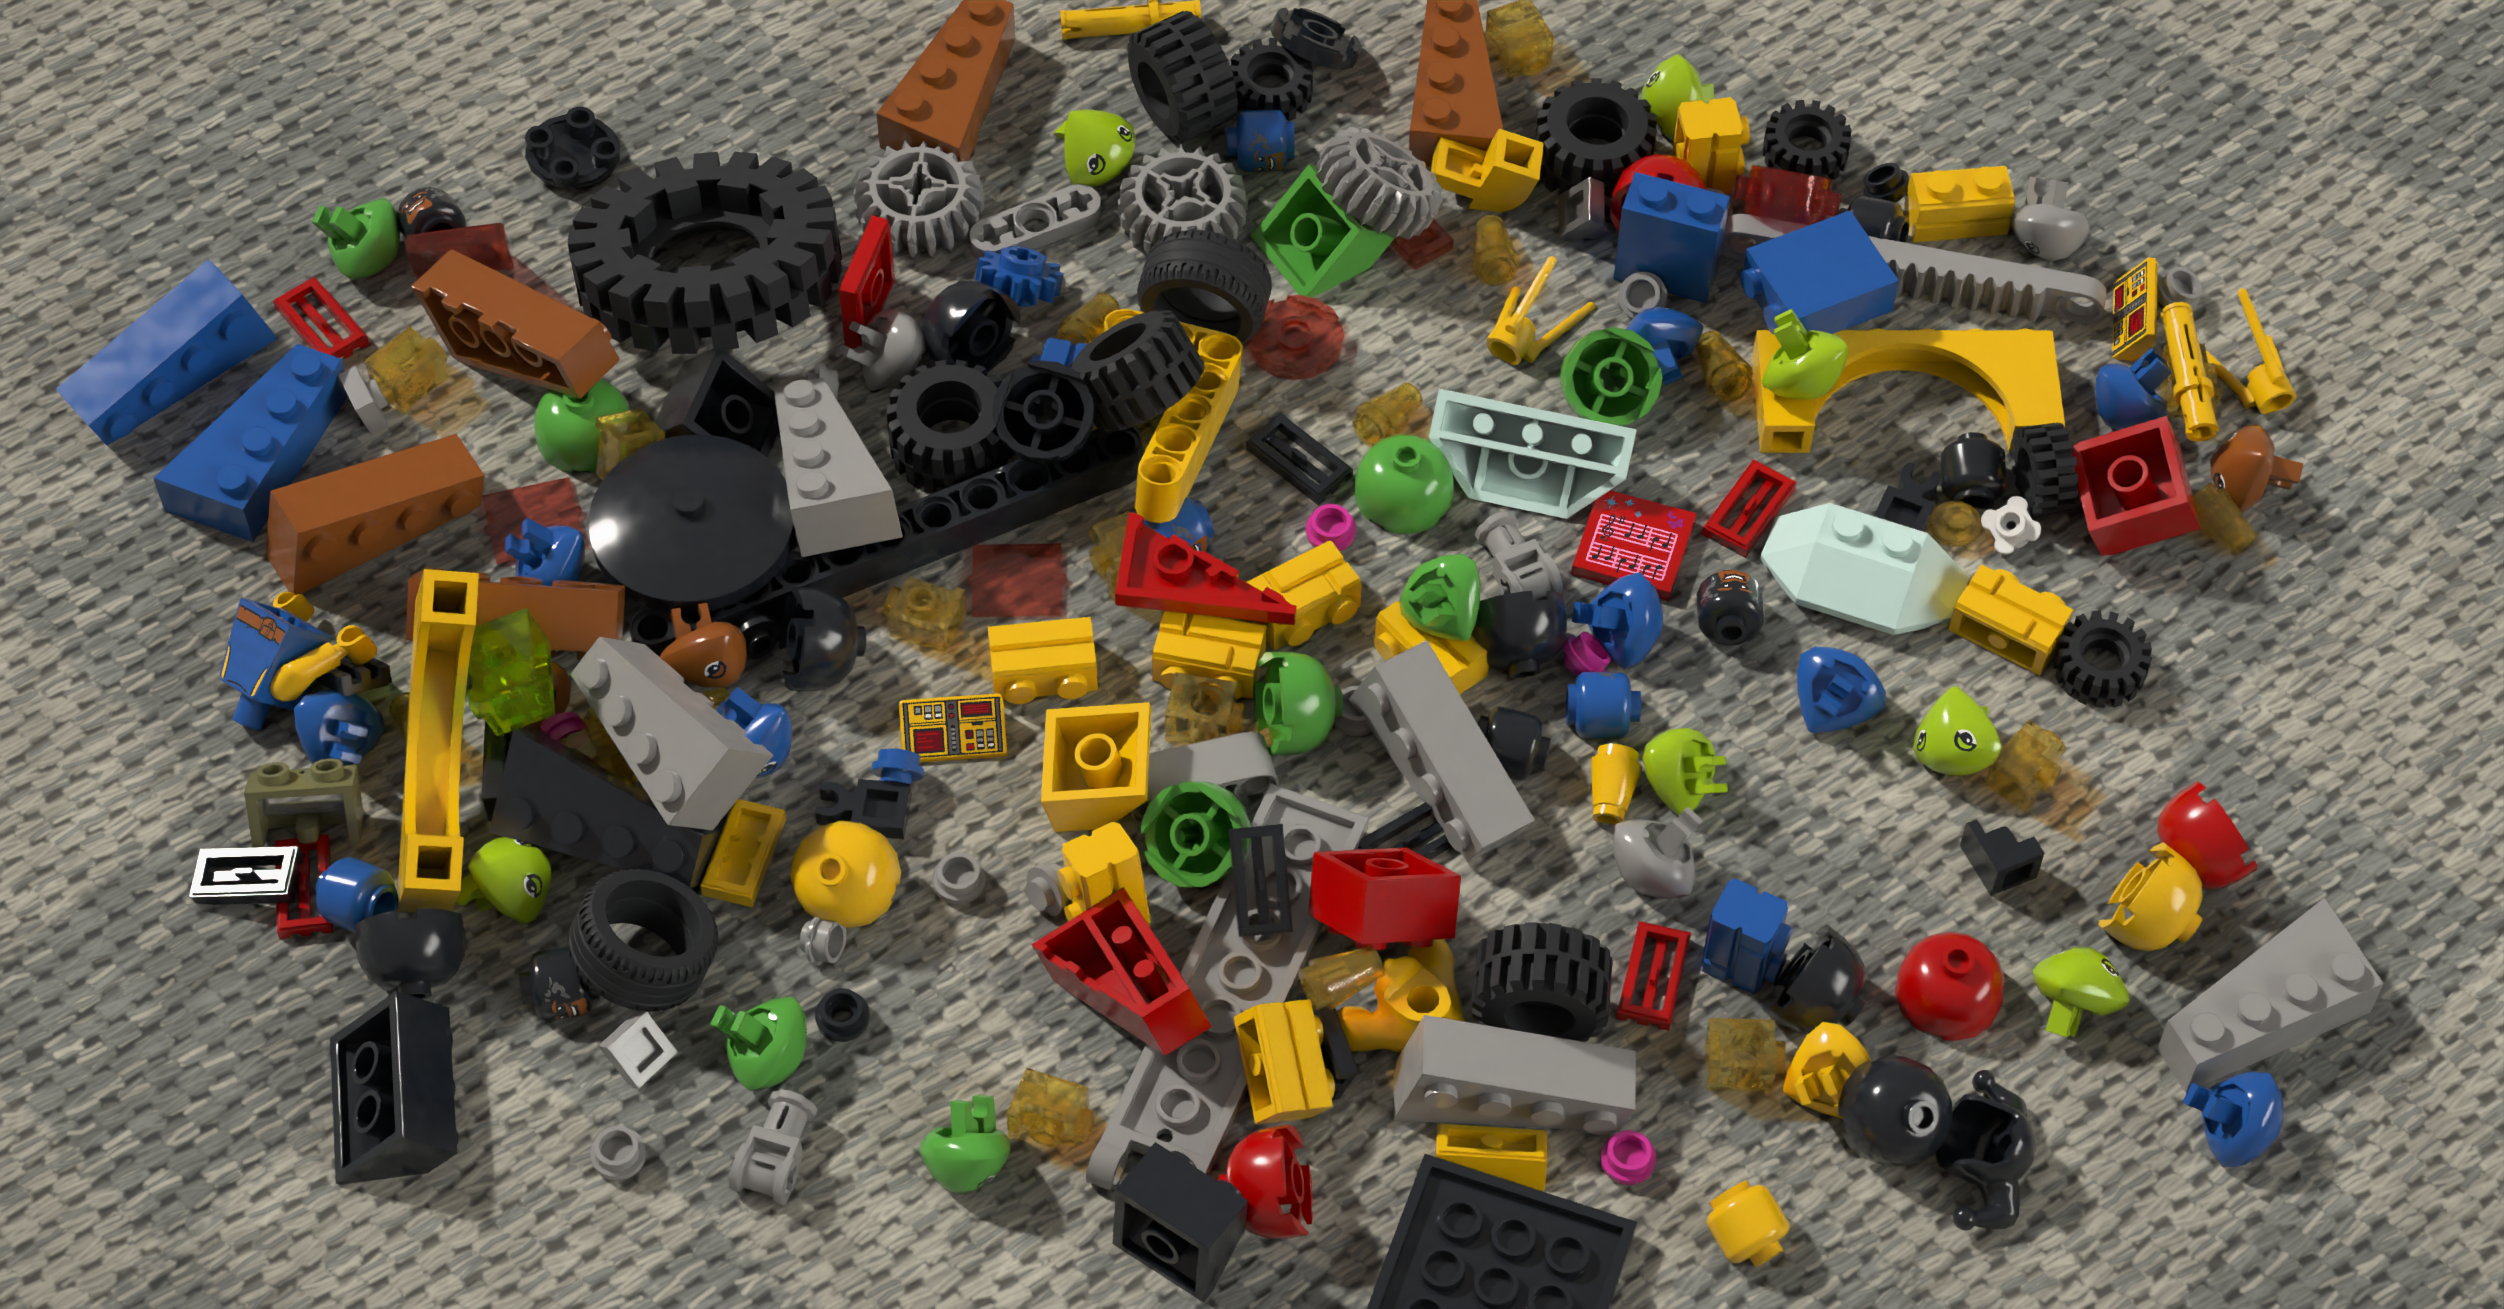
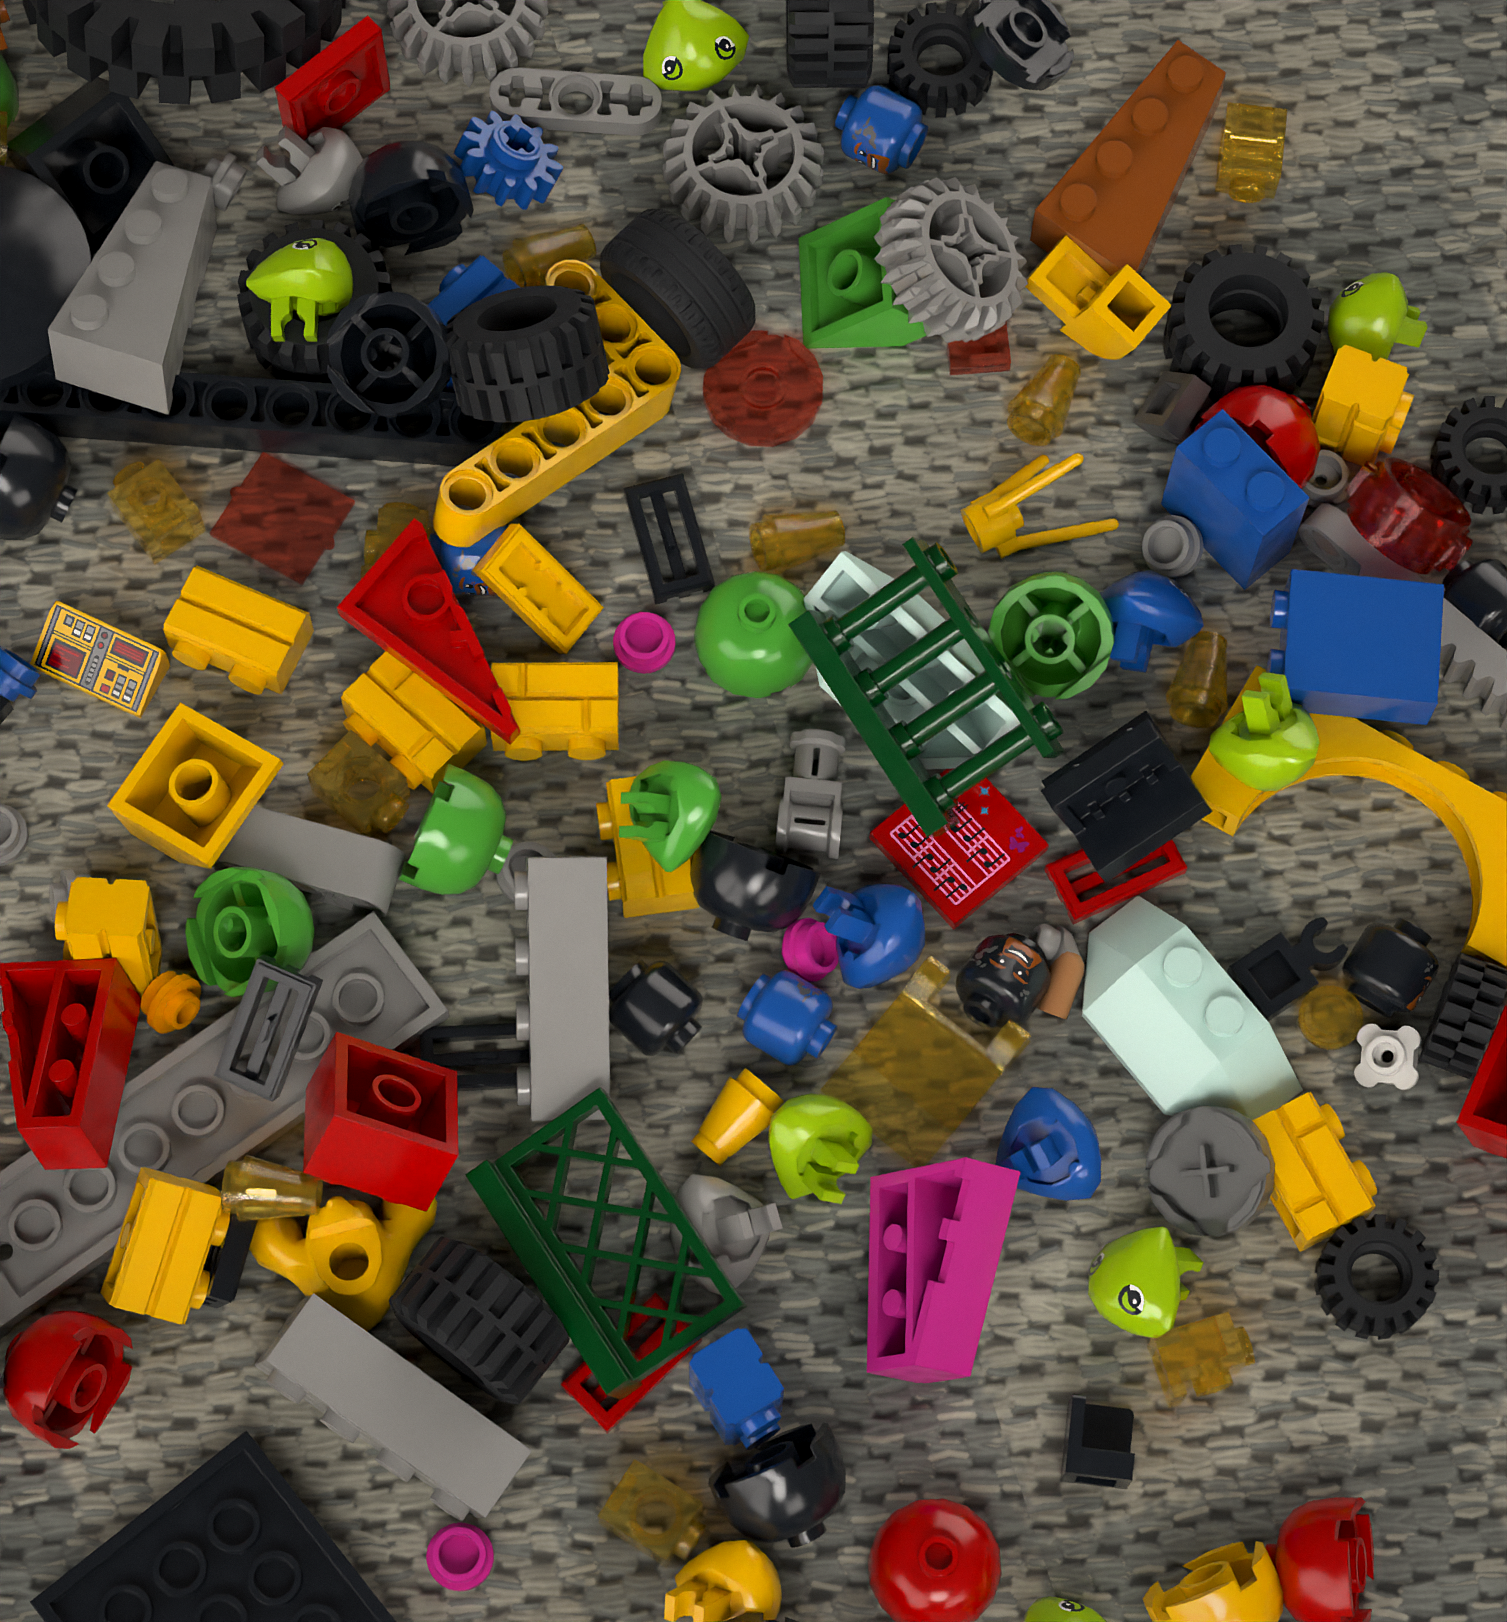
camera: 30 degrees right, 15 degrees up
(946, 400) = (305, 278): none -> lime piece
(1168, 915) = (171, 1001): none -> light orange plate
(1237, 526) = (538, 588): none -> yellow plate
(1498, 1151) = (324, 1468): yellow slope -> none
(1515, 468) = (900, 743): none -> dark green fence
(1631, 959) = (558, 1275): none -> dark green fence
(1715, 689) = (920, 1071): none -> clear yellow flag
(1729, 449) = (1125, 796): none -> black bracket
(1767, 579) = (1064, 966): none -> medium nougat arm
(1817, 792) = (933, 1265): none -> dark pink wedge
(1950, 646) = (1210, 1171): none -> dark grey tile

